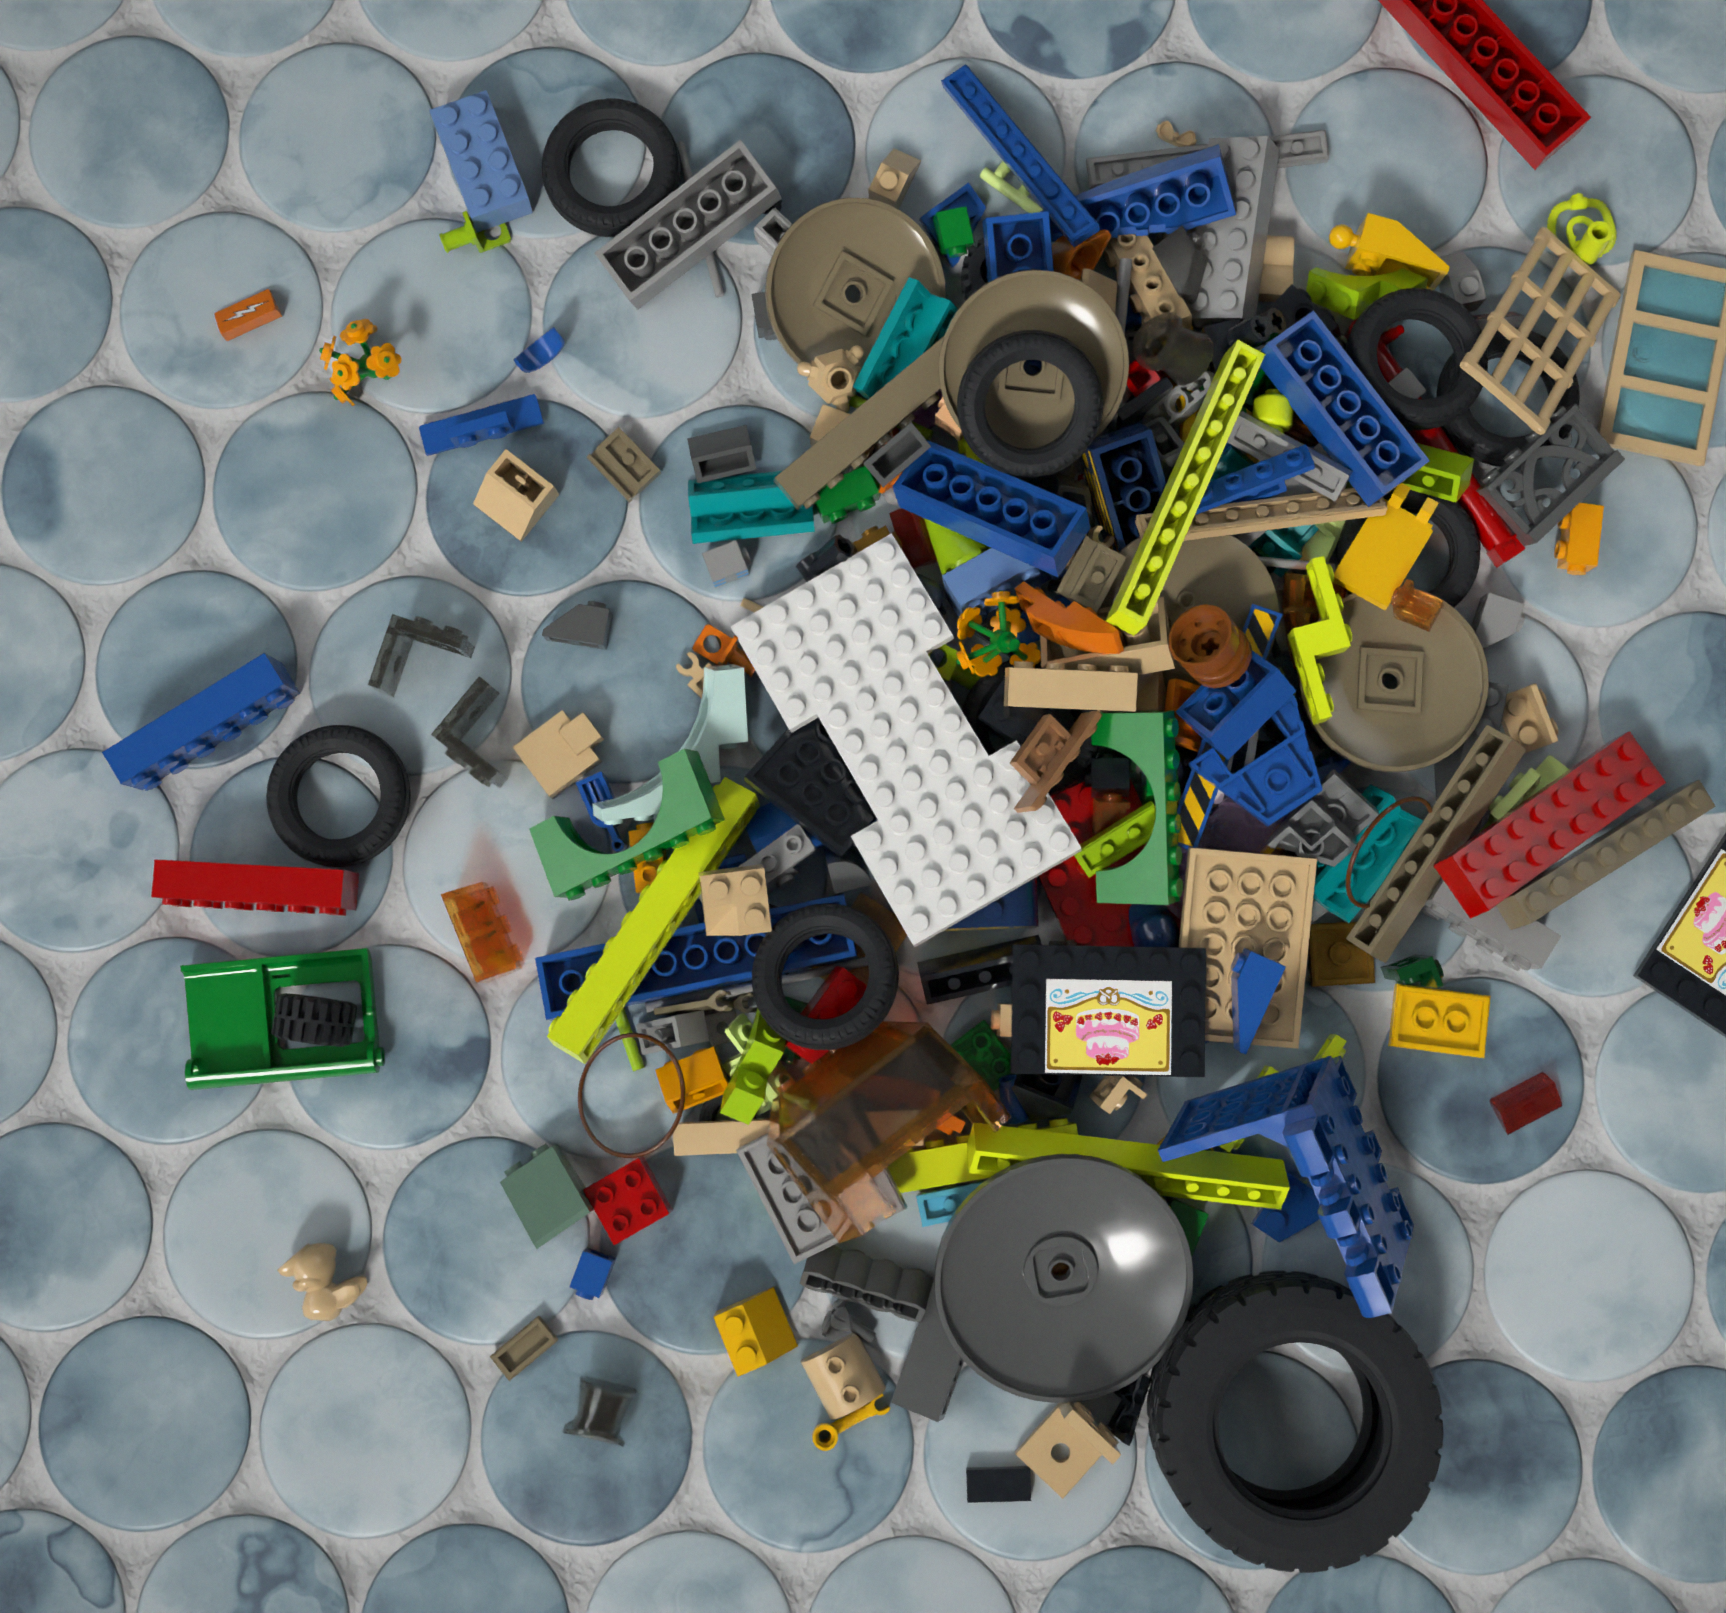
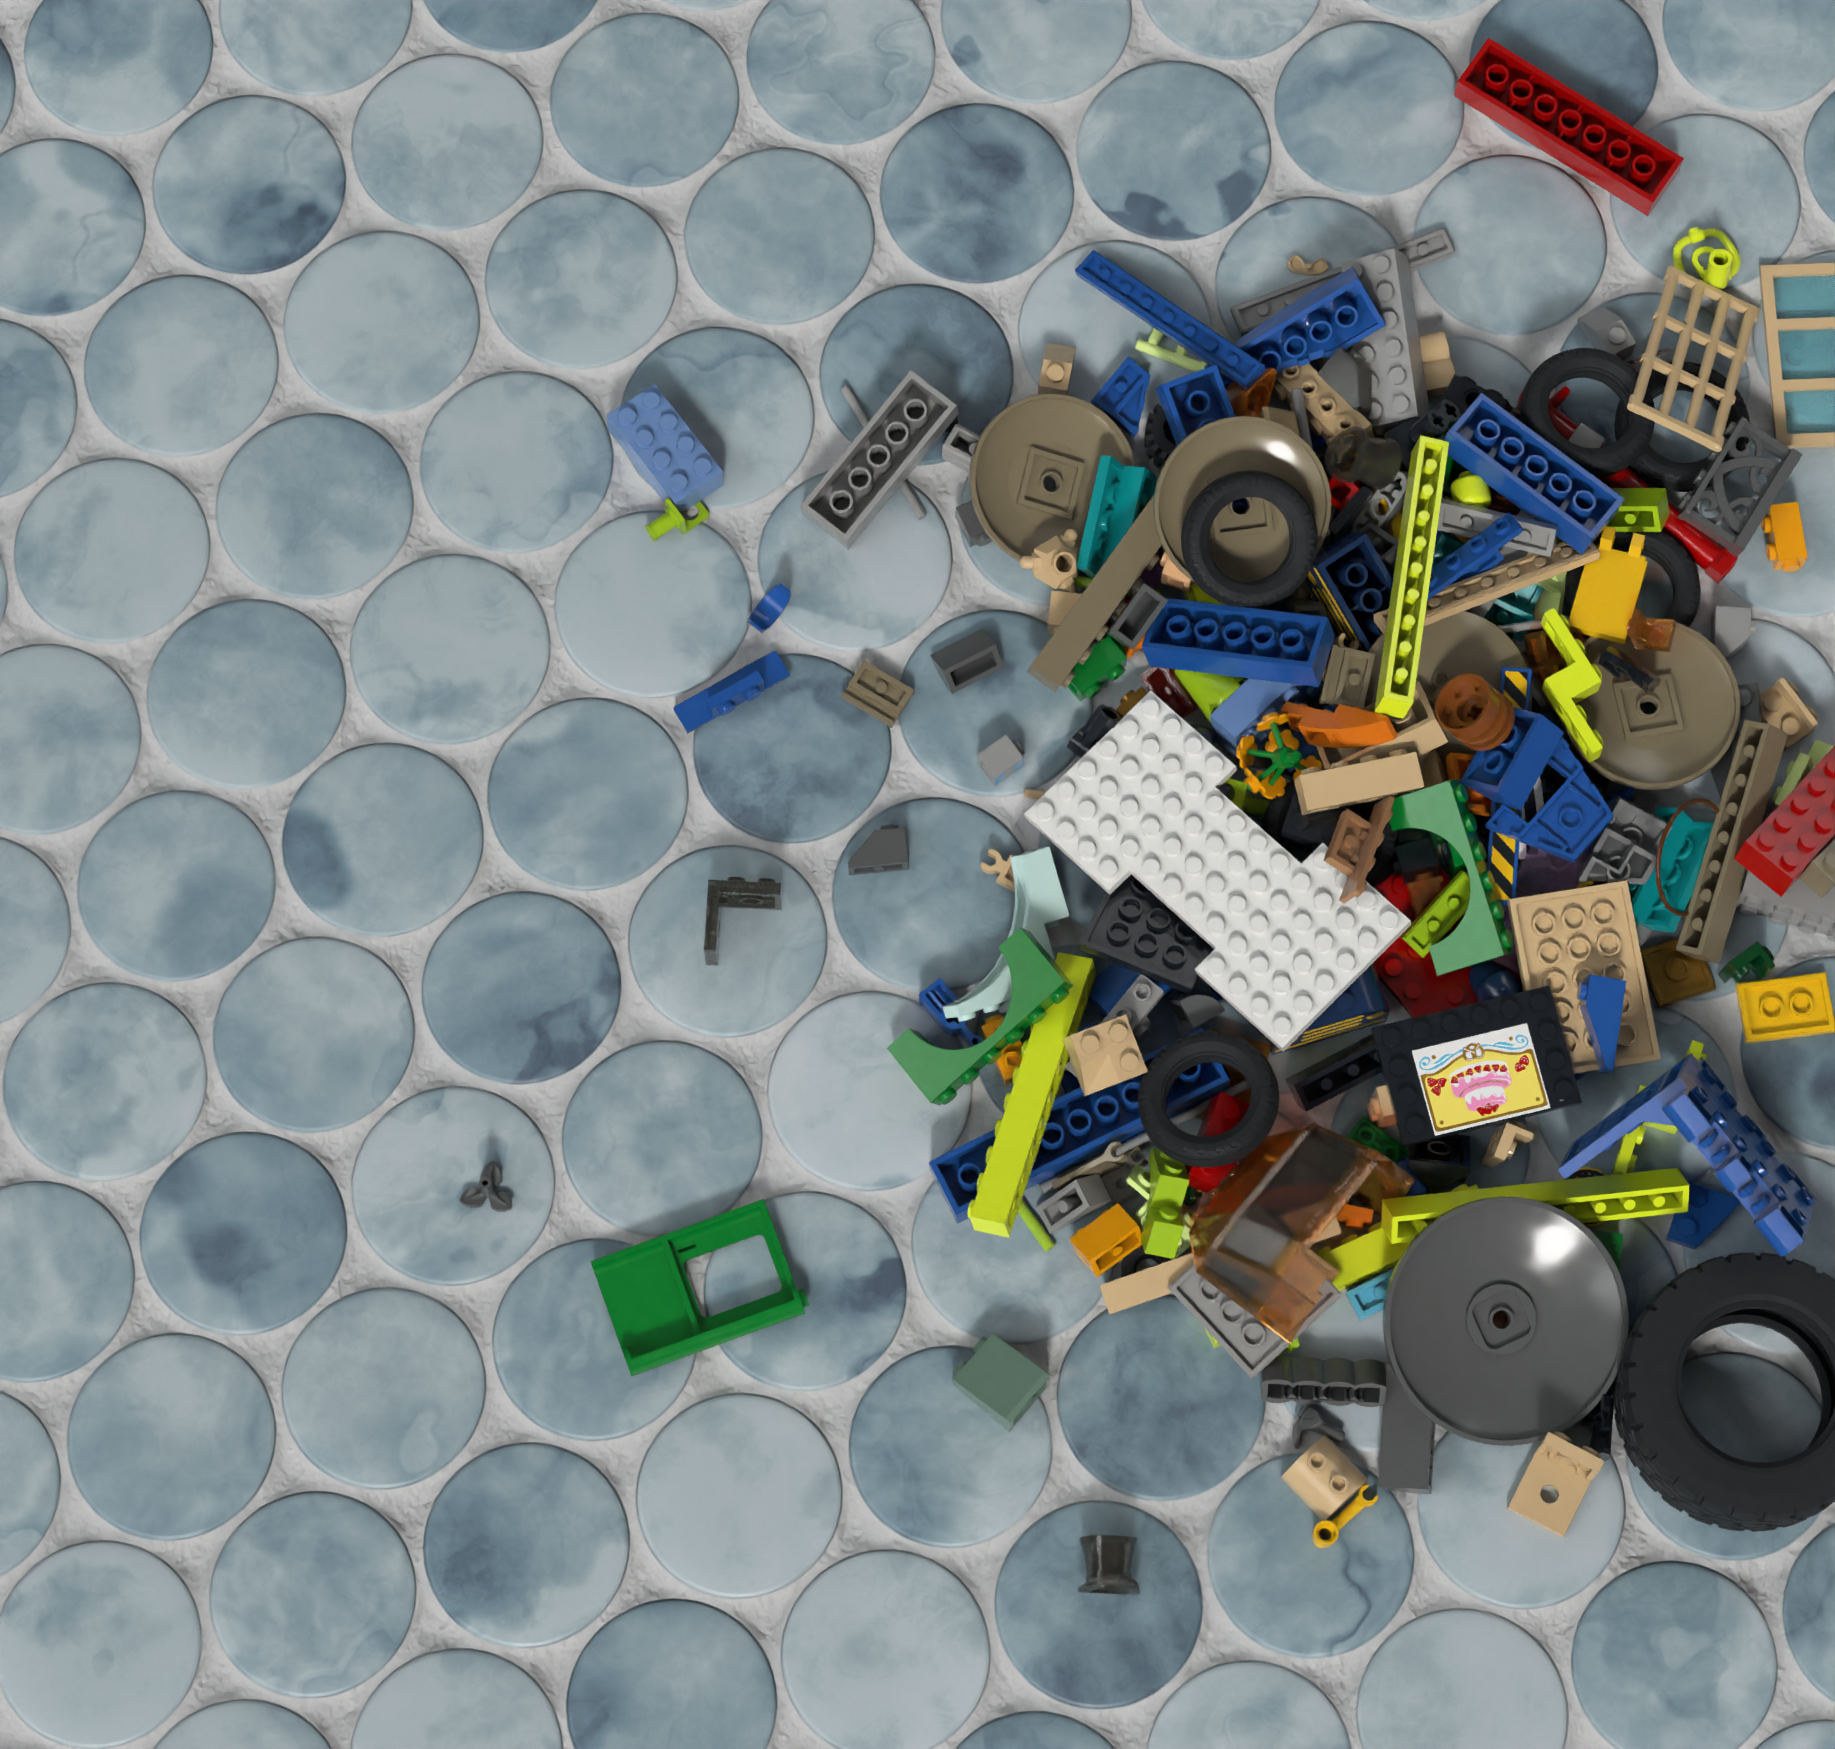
camera: 20 degrees left, 10 degrees down
(95, 867) = (489, 1180): none -> dark grey plant
(202, 723) = (550, 1030): blue brick -> none
(247, 315) = (479, 646): orange slope -> none
(259, 885) = (643, 1167): red brick -> none
(284, 786) = (705, 1118): black tyre -> none
(313, 1272) = (799, 1512): tan animal -> none
(314, 1020) = (735, 1274): black tyre -> none
(349, 371) = (604, 668): light orange plant -> none
(459, 722) = (803, 992): clear smoke bracket -> none
(483, 932) = (870, 1155): clear orange slope -> none
(514, 495) = (784, 747): tan slope -> none
(524, 1348) = (1016, 1533): dark tan tile -> none
(560, 751) = (894, 972): tan piece -> none
(592, 119) = (774, 378): black tyre -> none
(592, 1274) = (1062, 1445): blue brick -> none
(628, 1200) = (1078, 1366): red brick -> none
(682, 1097) = (1104, 1280): reddish brown piece -> none
(727, 653) = (1025, 839): orange bracket -> none
(744, 509) = (1003, 705): teal slope -> none
(755, 1331) = (1230, 1458): yellow slope -> none
(953, 232) = (1128, 404): green brick -> none
(998, 1484) = (1500, 1540): black tile -> none
(1353, 294) = (1513, 369): lime arch -> none
(1377, 634) = (1622, 665): none -> black slope
(1385, 247) = (1535, 324): yellow slope -> none

